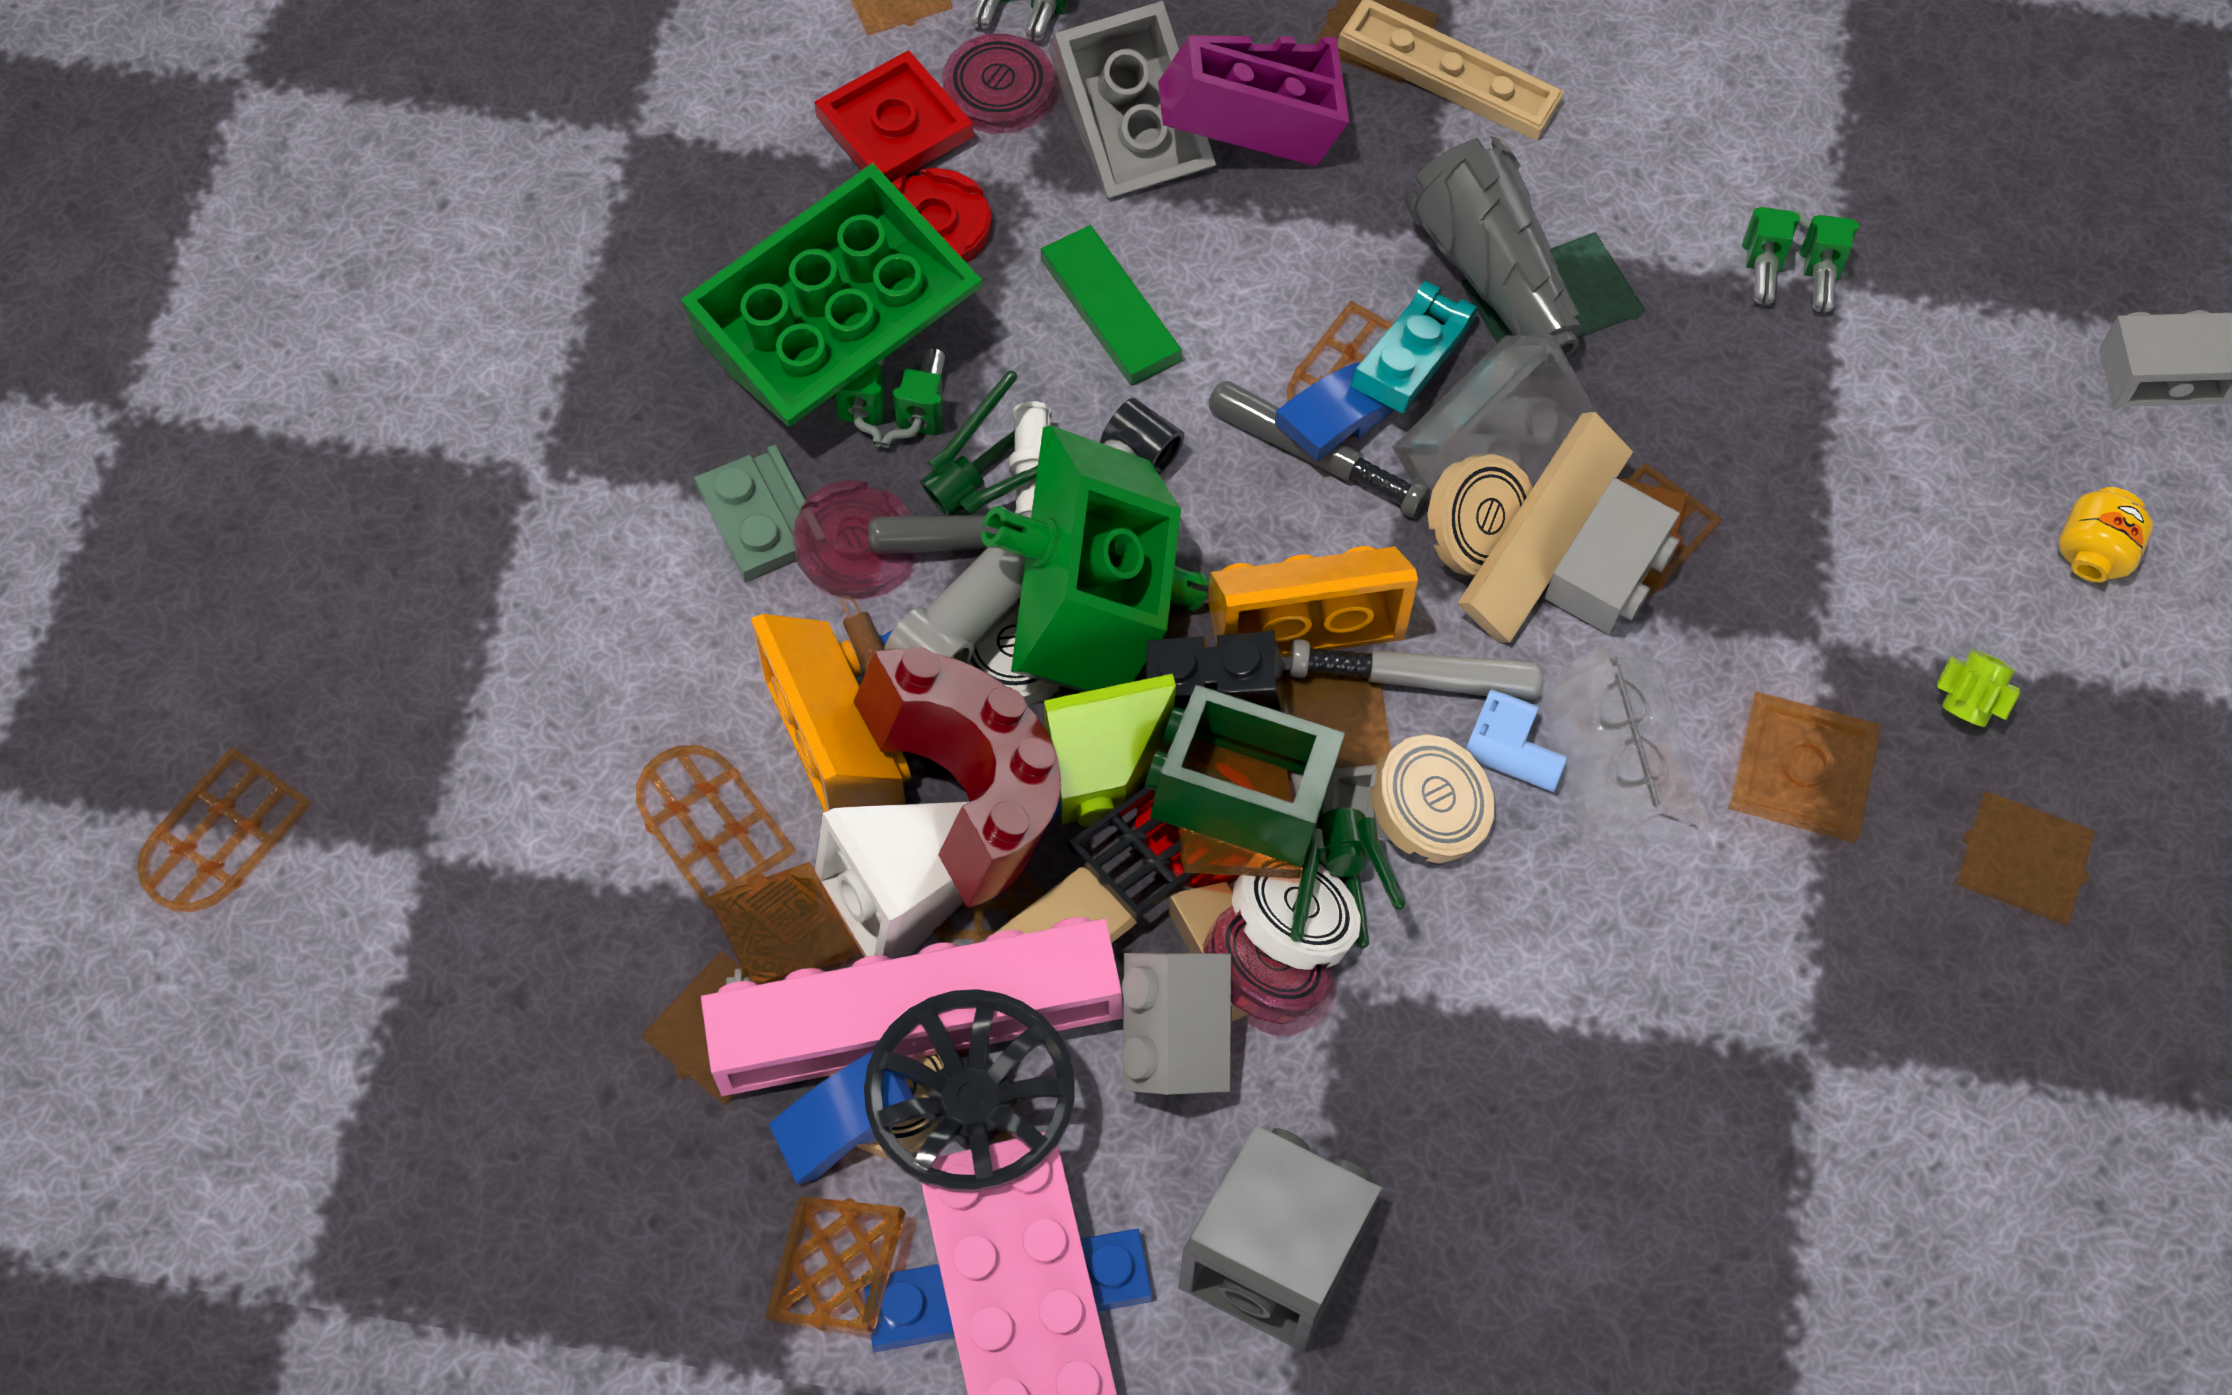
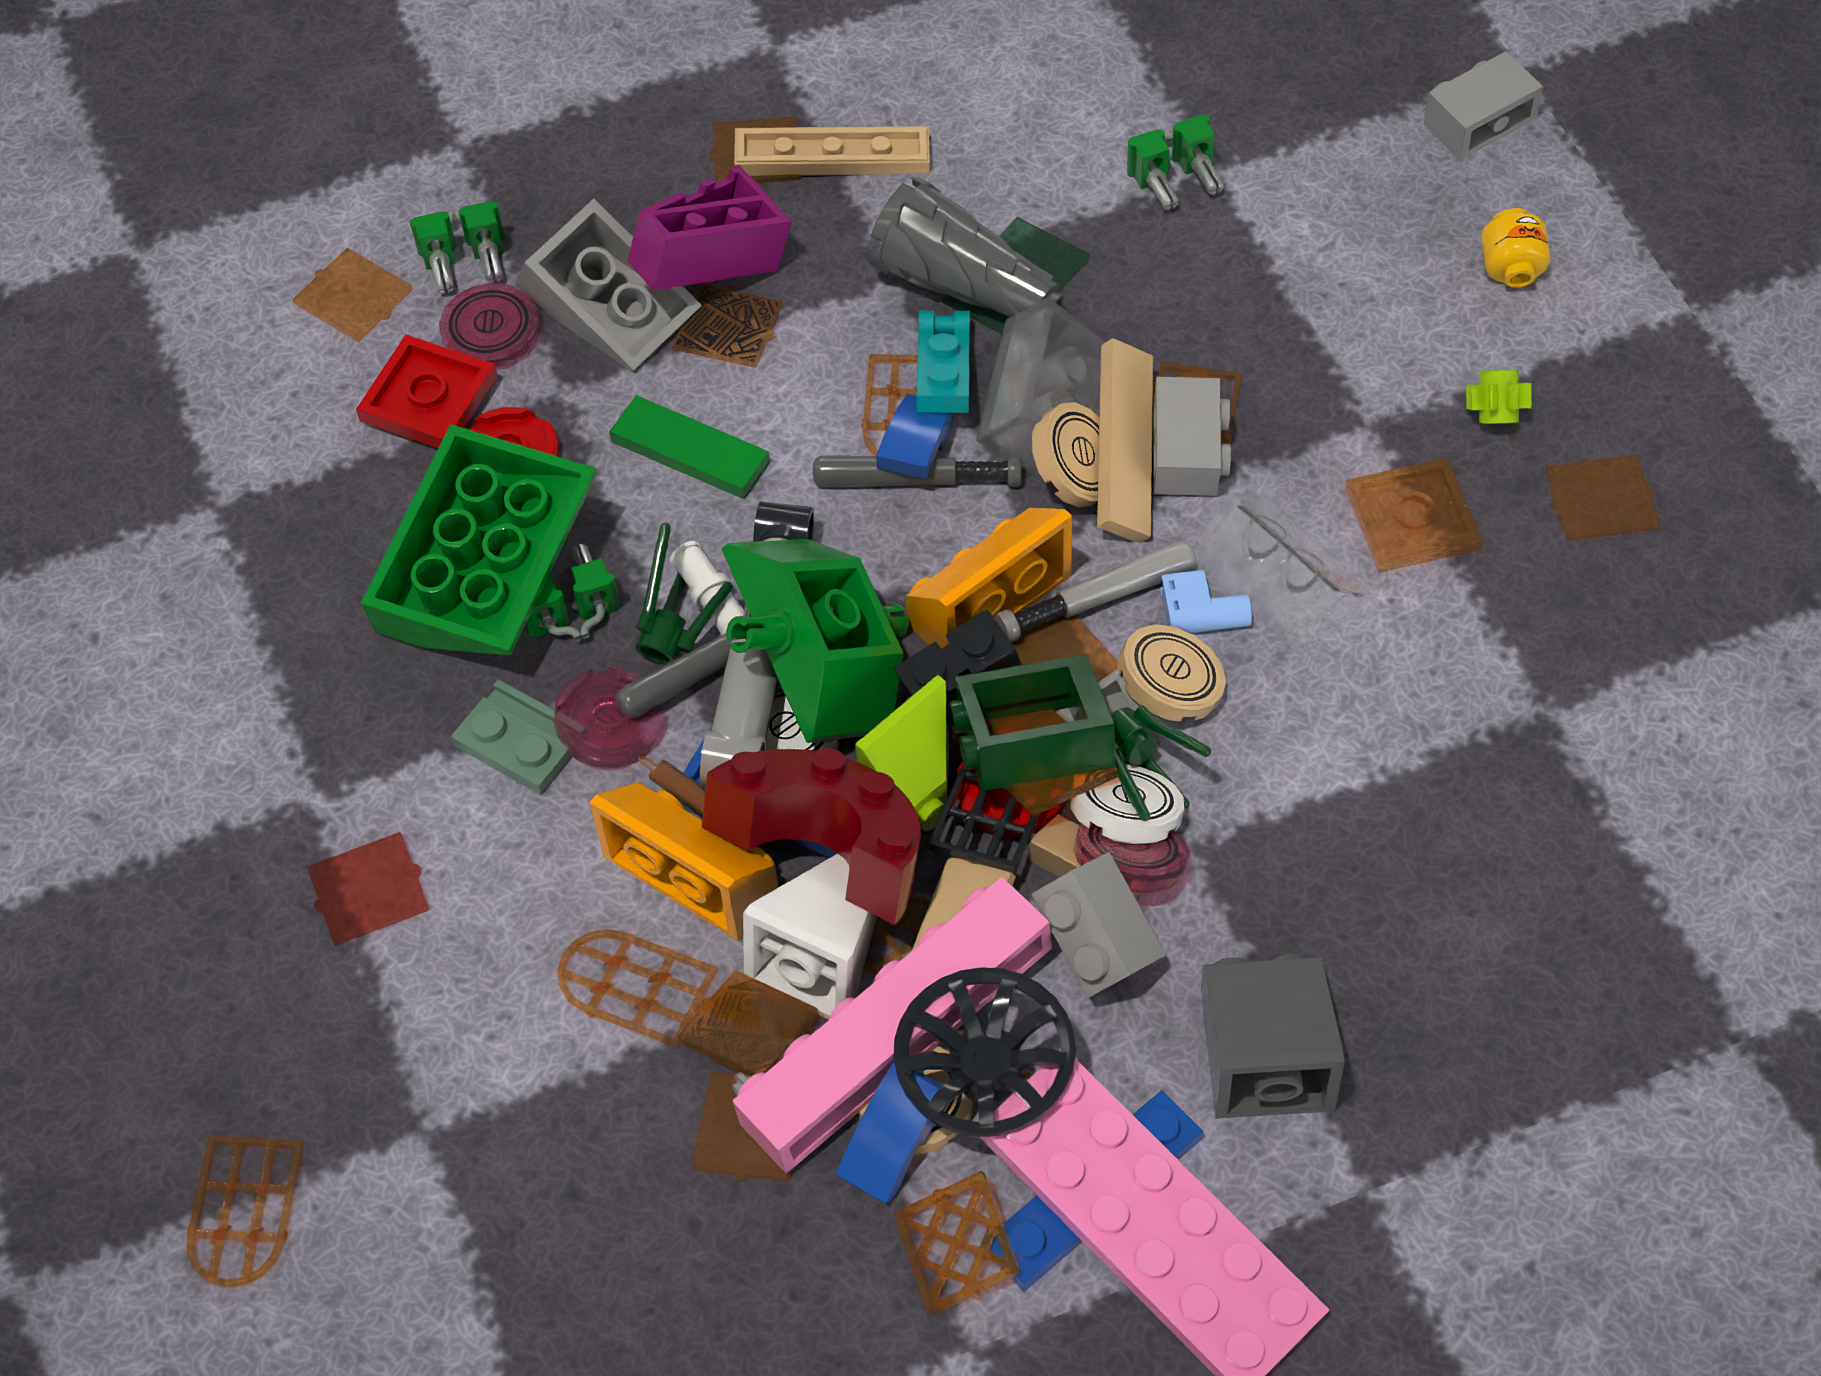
camera: 25 degrees left, 5 degrees down
(526, 586) = (367, 888): none -> clear red piece
(1231, 200) = (729, 326): none -> clear orange piece

